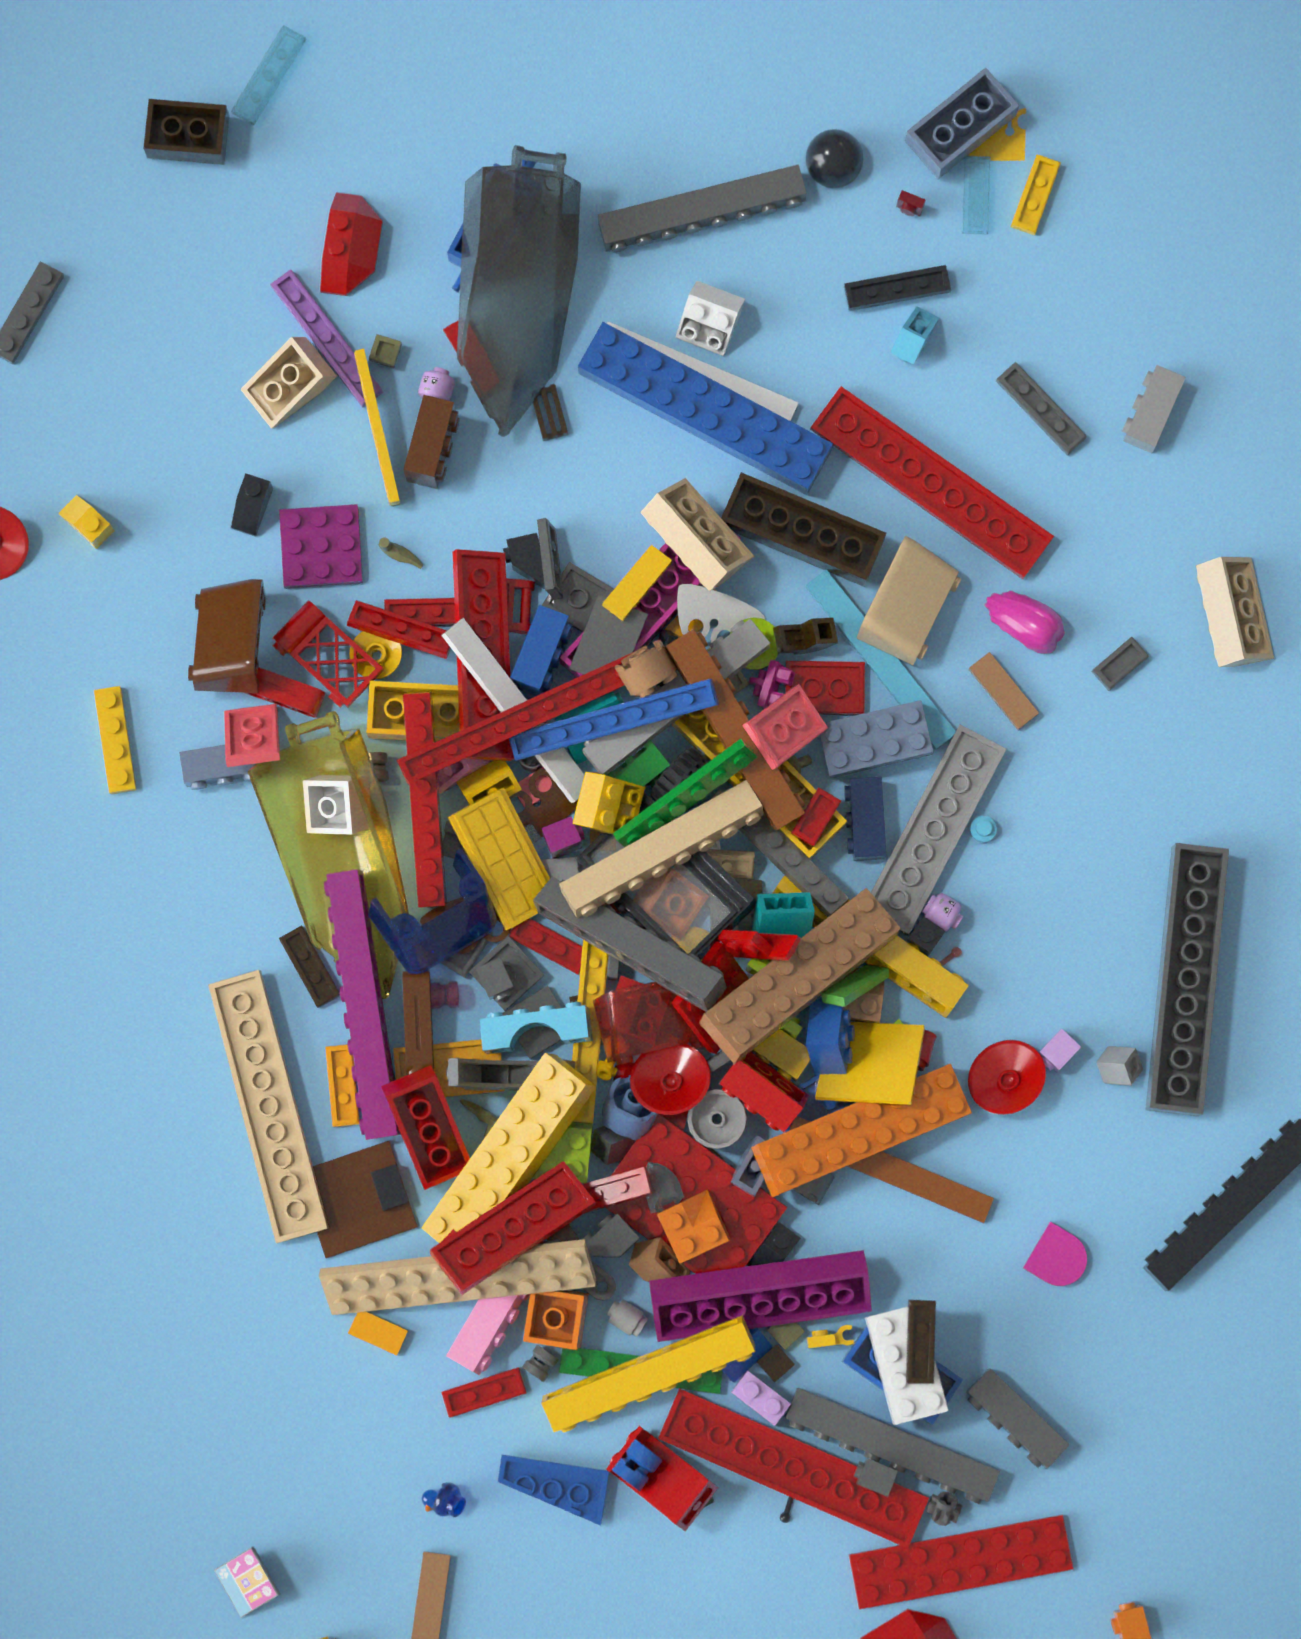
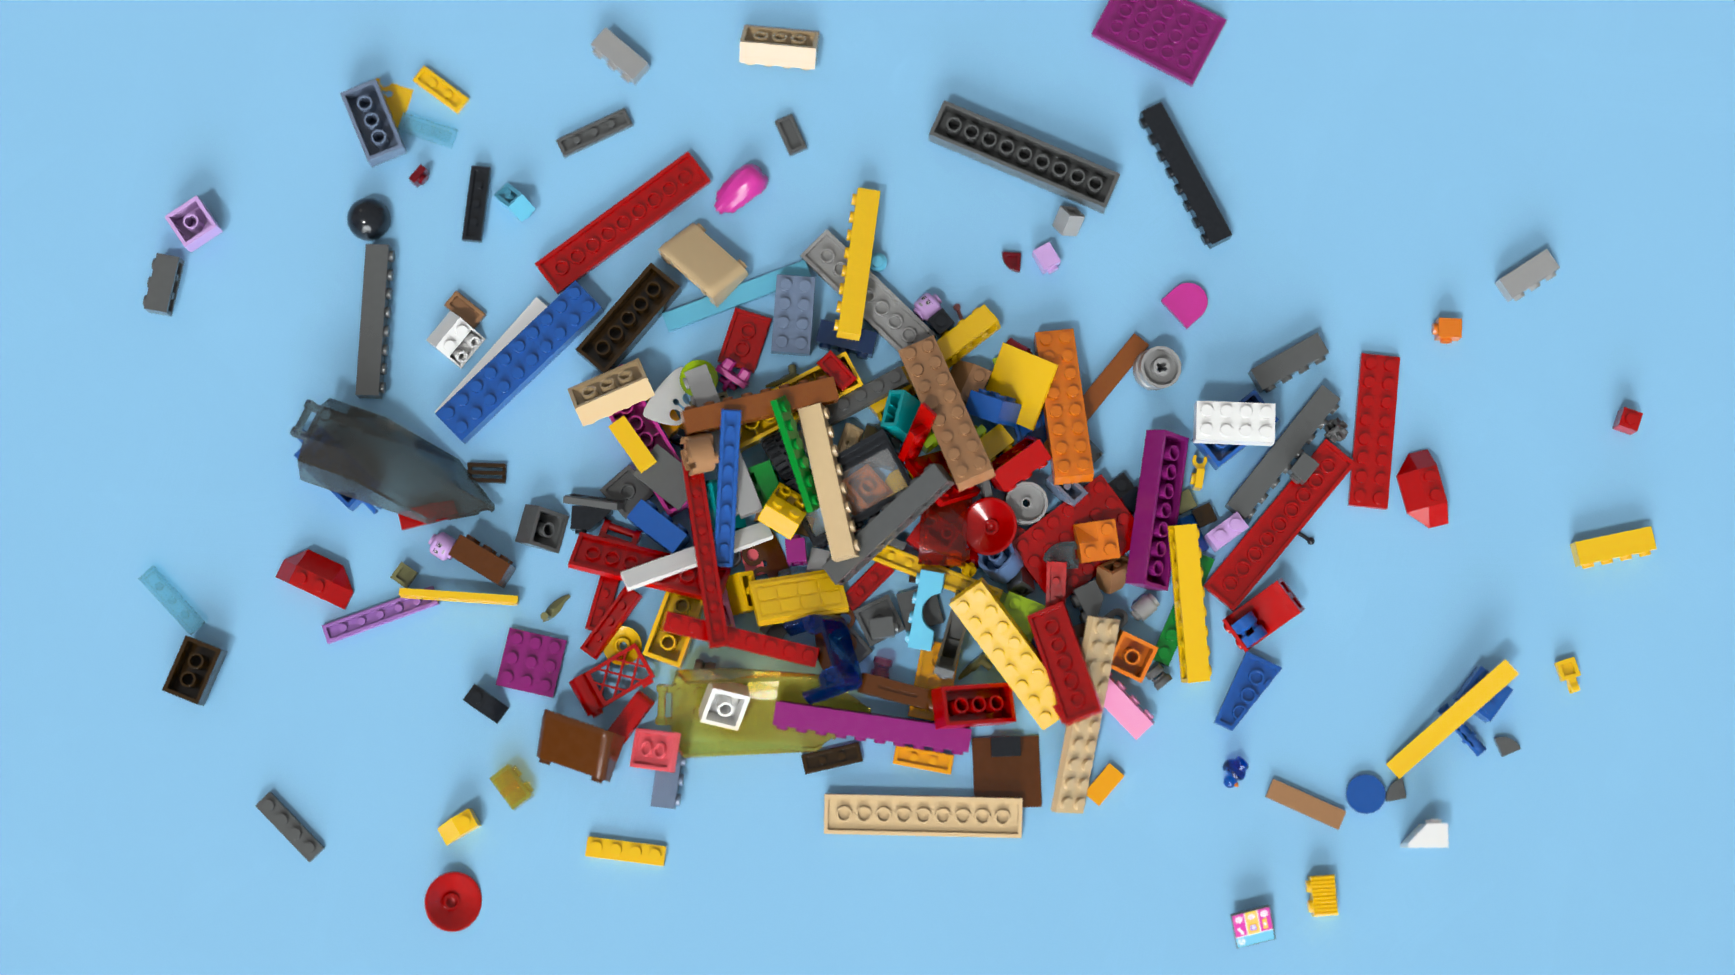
camera: 70 degrees left, 0 degrees up
(155, 571) = (512, 786): none -> clear yellow brick
(288, 381) = (404, 651): tan slope -> none
(483, 1392) = (1167, 722): red tile -> none
(496, 504) = (541, 528): none -> dark grey slope
(753, 318) = (465, 309): none -> medium nougat tile
(785, 726) = (768, 371): coral tile -> none
(806, 637) = (705, 340): dark brown brick -> none
(855, 985) = (963, 379): bright green tile -> none
(920, 1341) = (1224, 407): dark brown tile -> none
(953, 1257) = (1156, 358): none -> light grey wheel
(970, 802) = (858, 264): none -> yellow brick
(1003, 691) = (785, 219): medium nougat tile -> none
(1006, 1077) = (1054, 298): red hat -> none
(1042, 1007) = (1012, 260): none -> dark red tile

